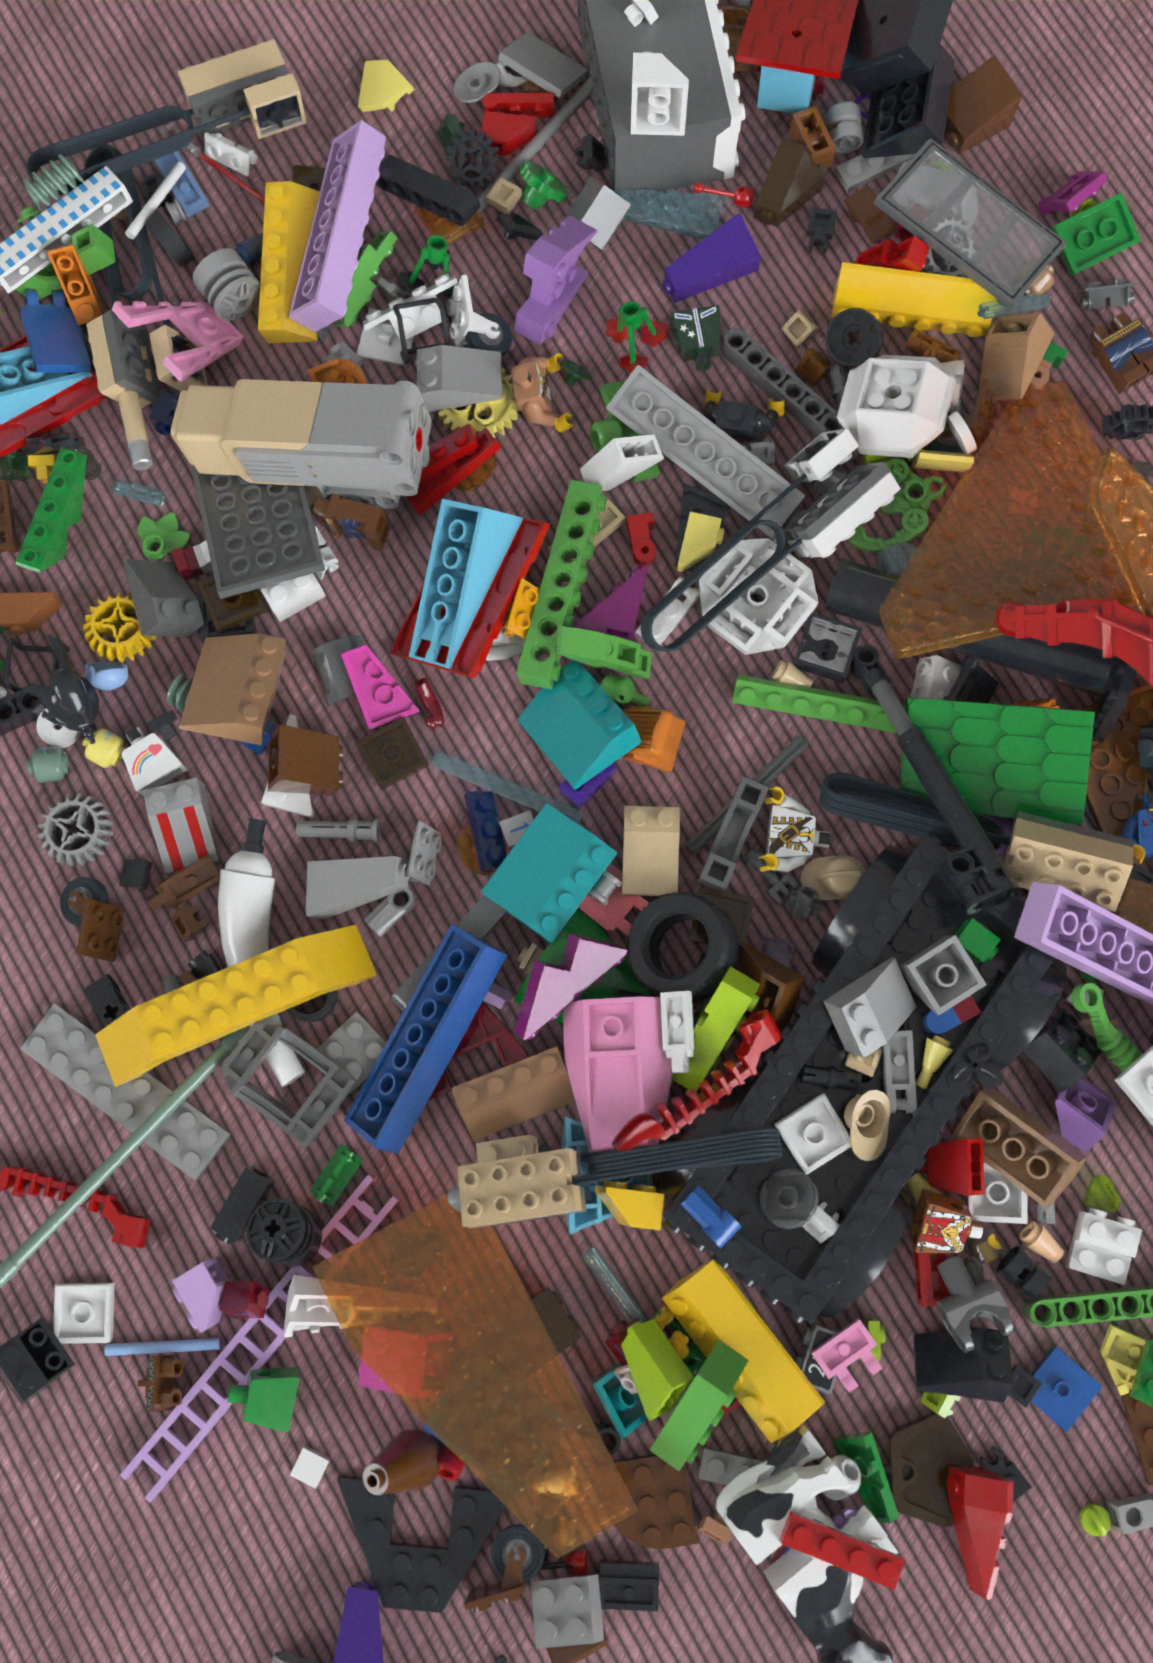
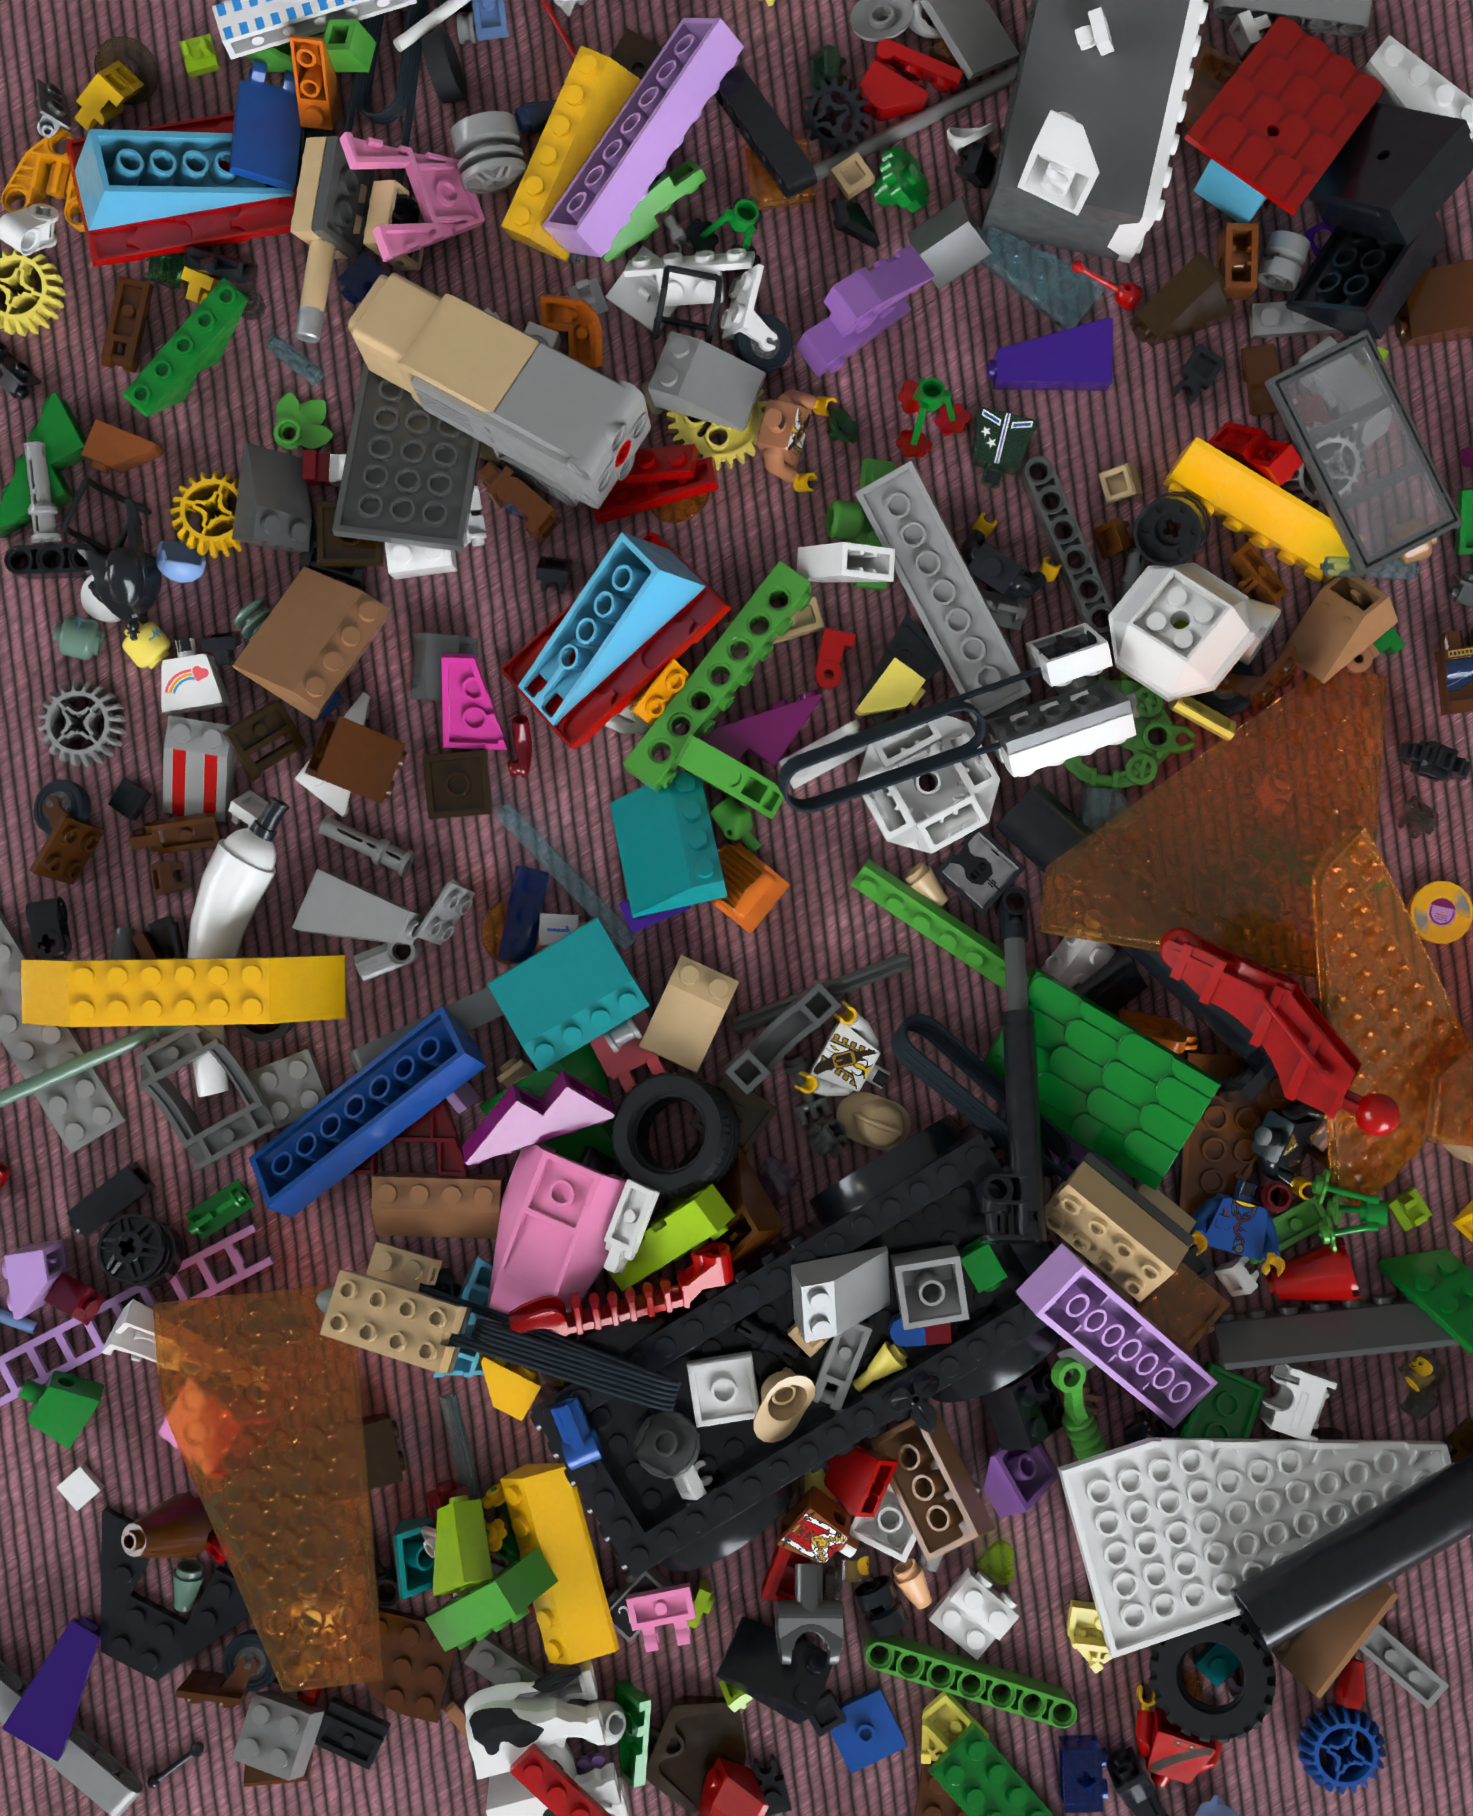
camera: 10 degrees right, 10 degrees up
(219, 773) = (260, 730): none -> dark brown plate
(231, 839) = (247, 808): none -> white tile
(401, 562) = (554, 570): none -> black tile
(434, 1511) = (187, 1582): none -> sand green cone
(571, 142) = (963, 136): none -> white piece
(961, 433) = (1234, 699): white piece -> none

